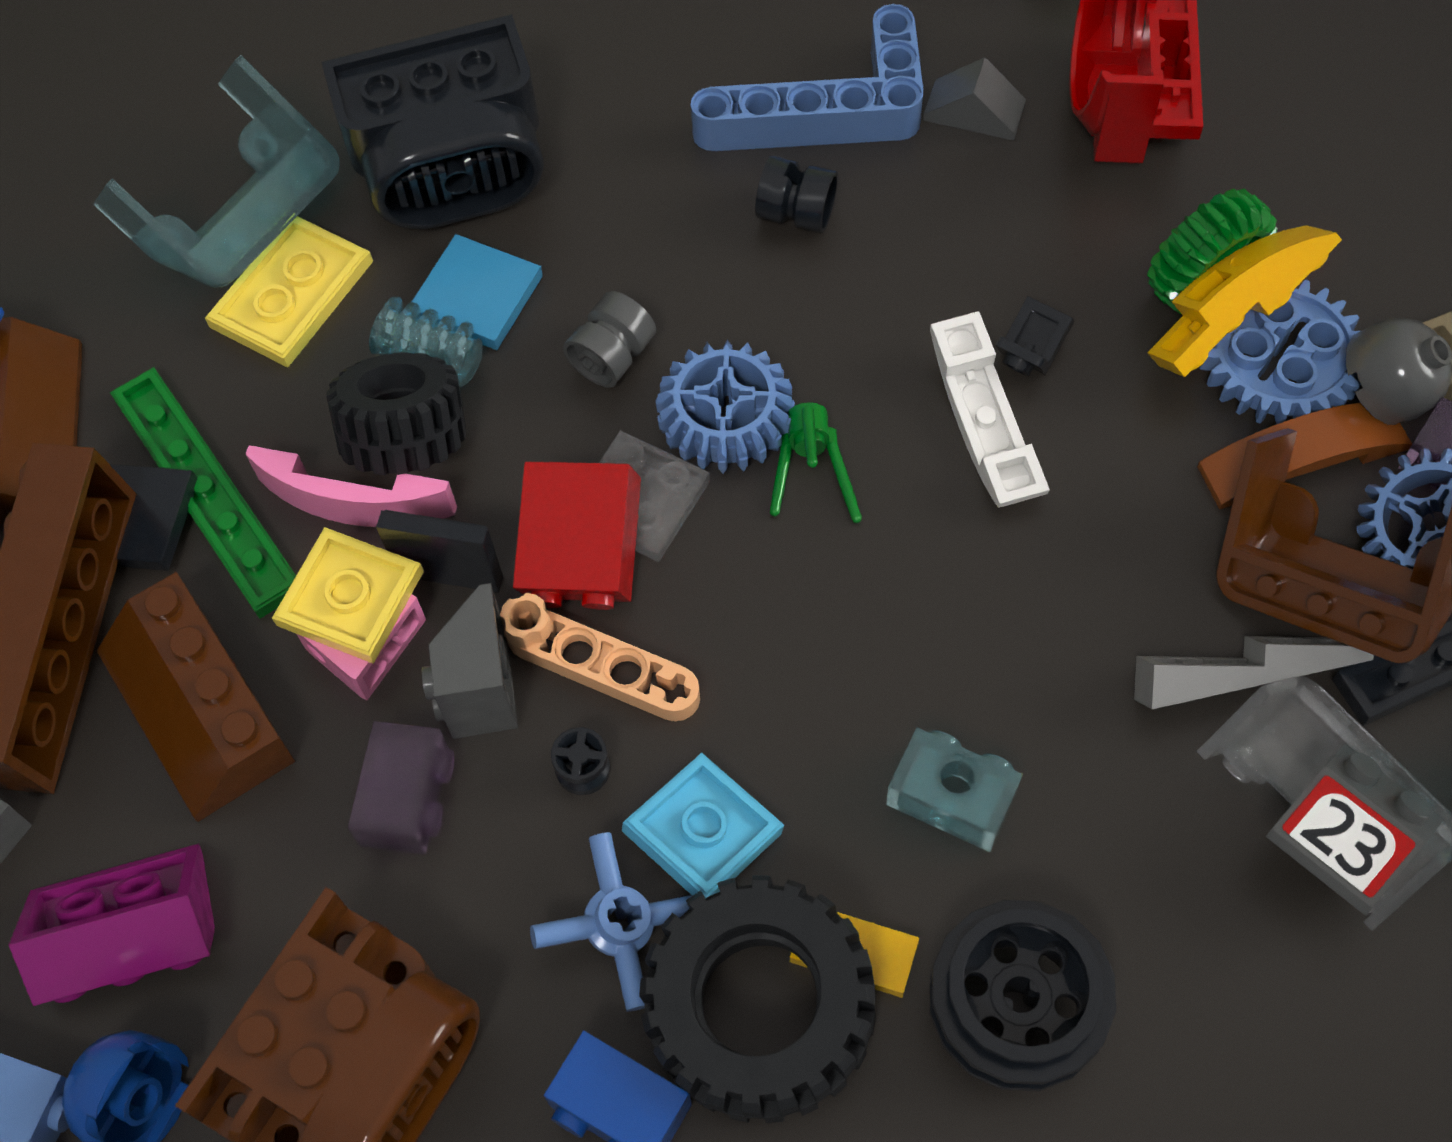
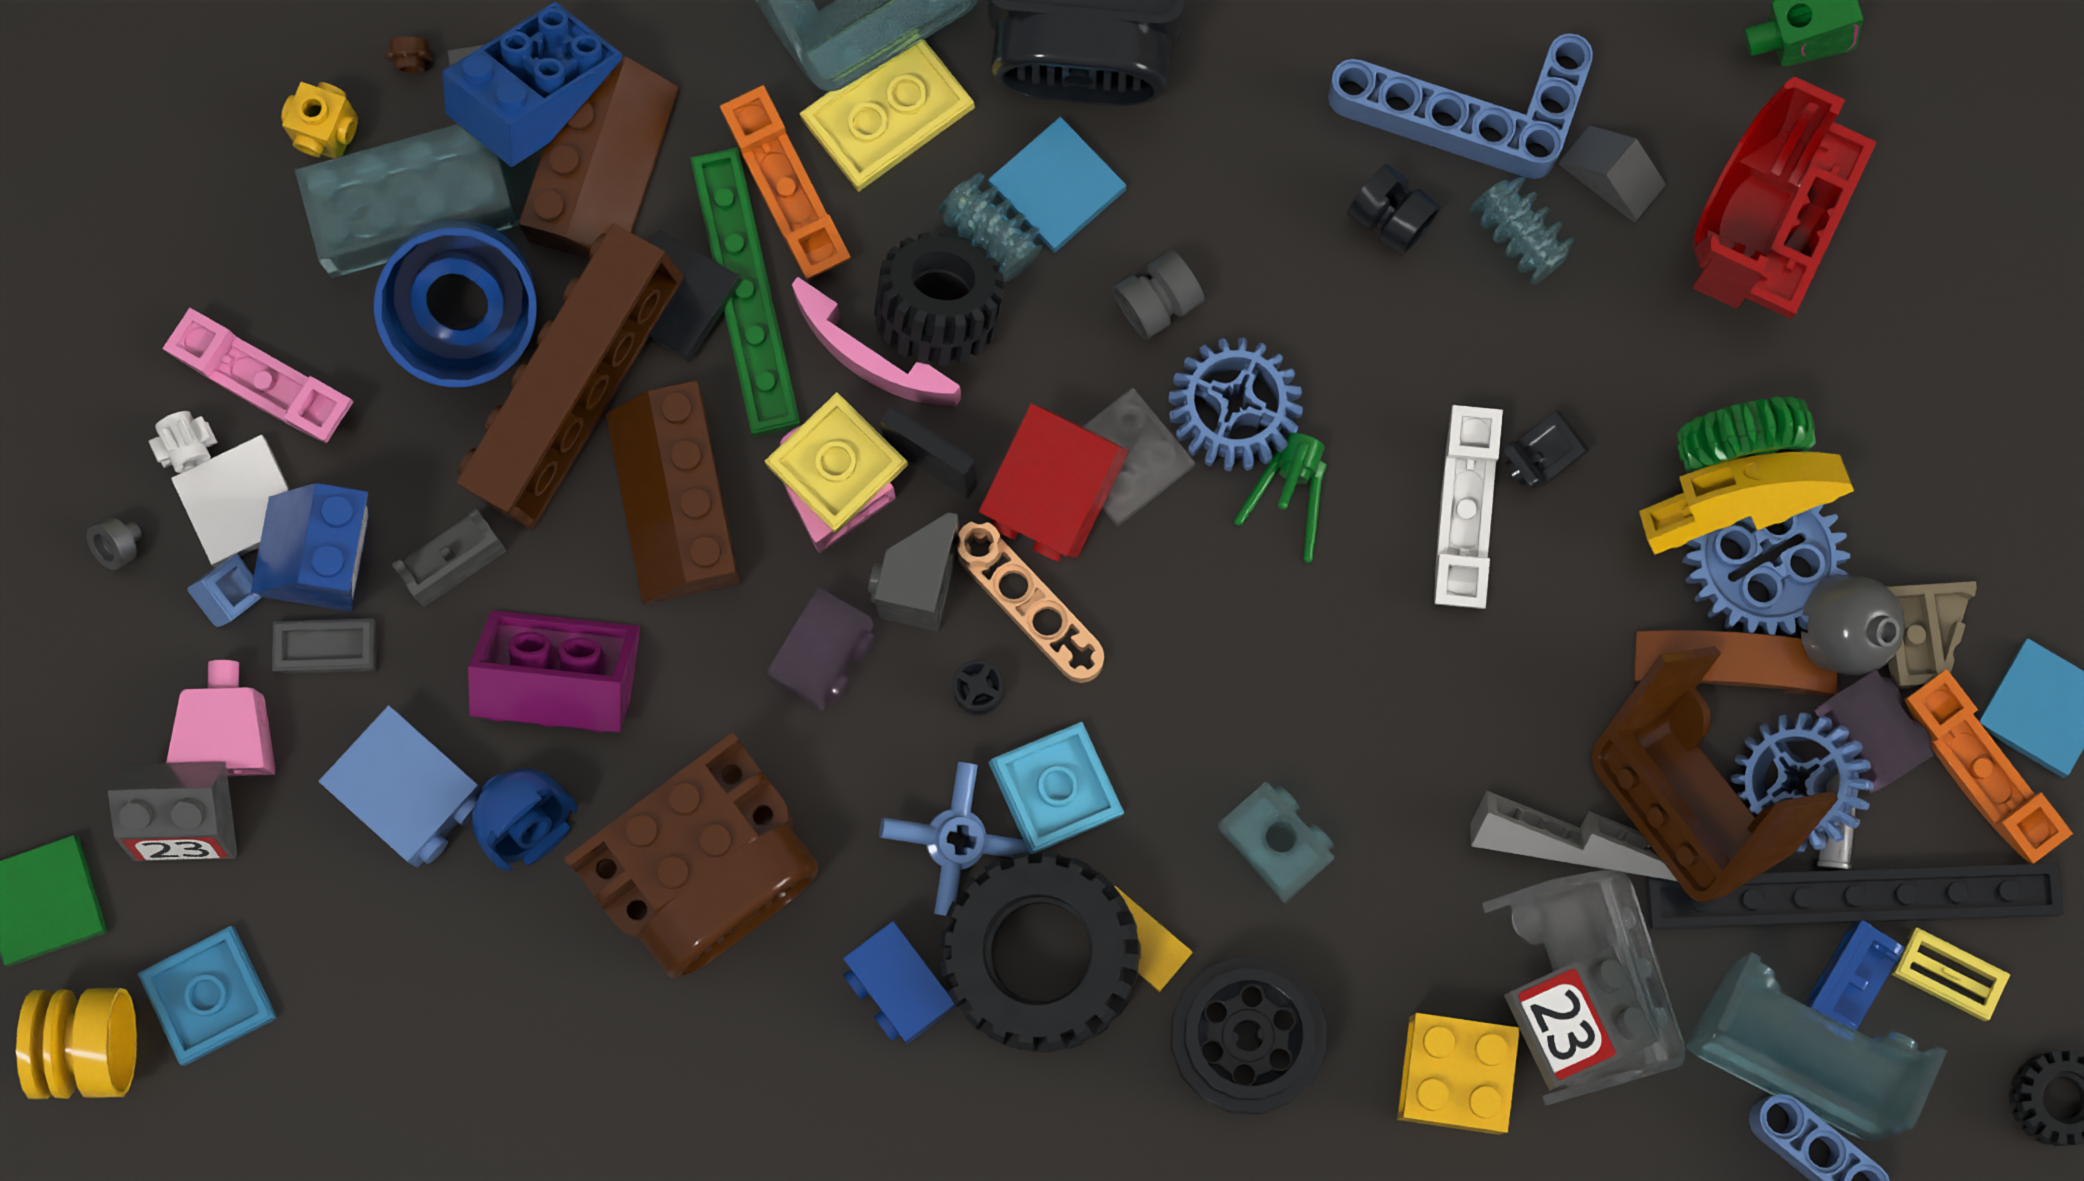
camera: 20 degrees right, 15 degrees up
(206, 378) = (784, 183): none -> orange slope
(919, 169) = (1524, 228): none -> clear light blue piece
(1257, 945) = (1458, 1073): none -> yellow piece

